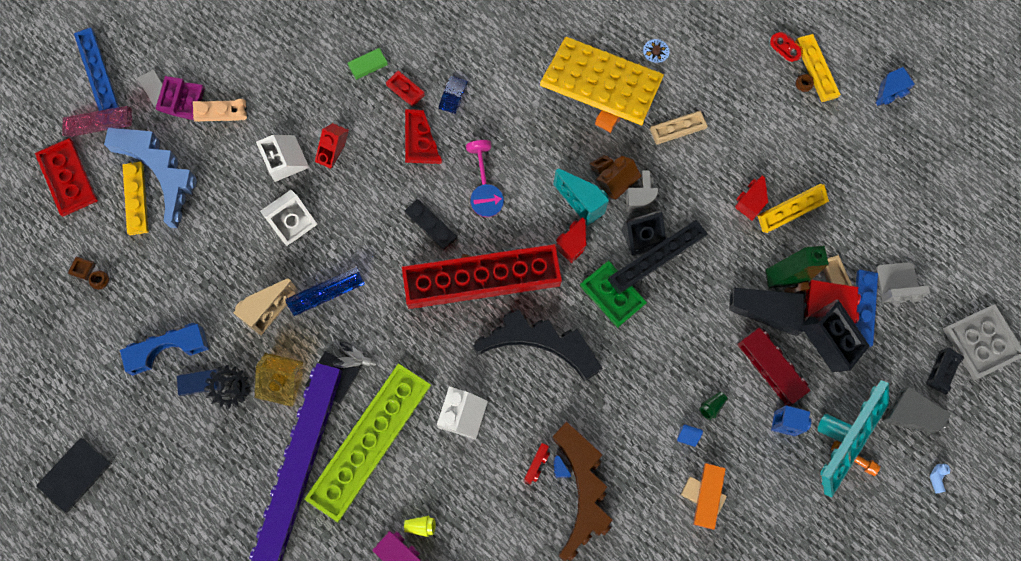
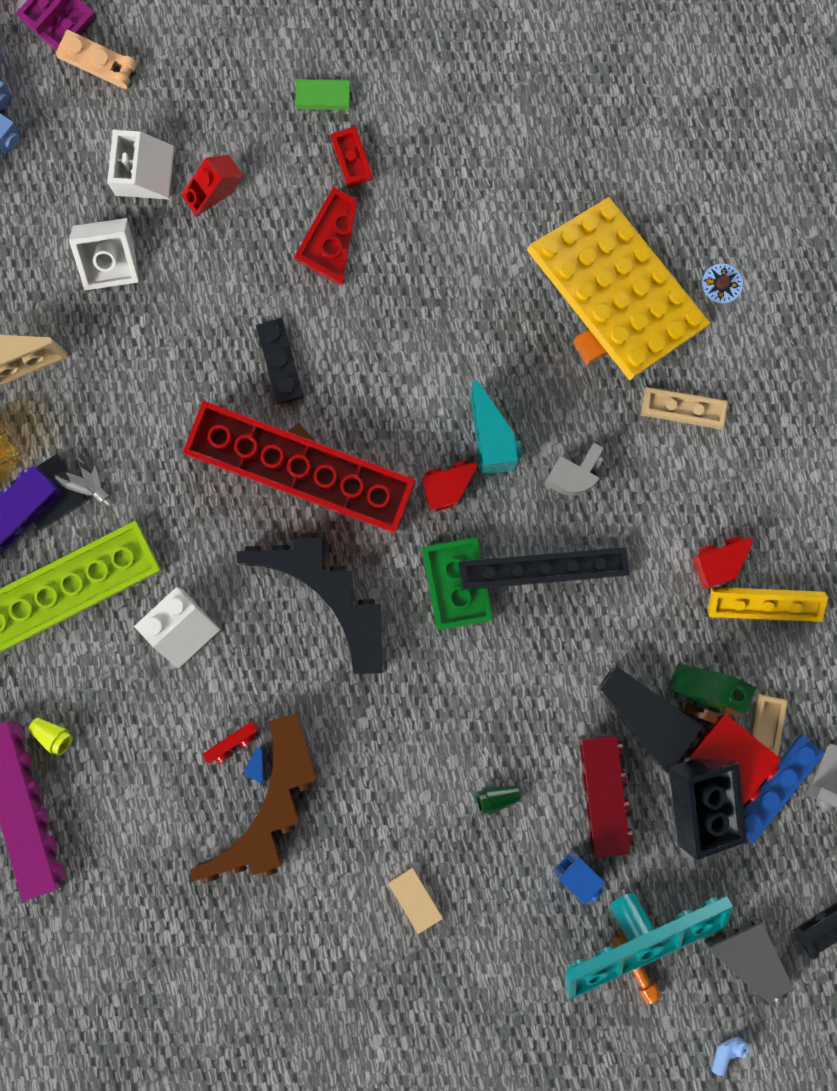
camera: 35 degrees right, 10 degrees up
(324, 291) = (97, 377): clear blue plate -> none
(452, 94) = (409, 198): clear blue slope -> none
(485, 199) = (371, 366): piece -> none
(601, 164) = (548, 404): reddish brown plate -> none
(618, 177) = (557, 433): reddish brown brick -> none
(644, 232) = (547, 527): black slope -> none
(689, 435) = (443, 817): blue slope -> none
(709, 496) = (419, 907): orange tile -> none

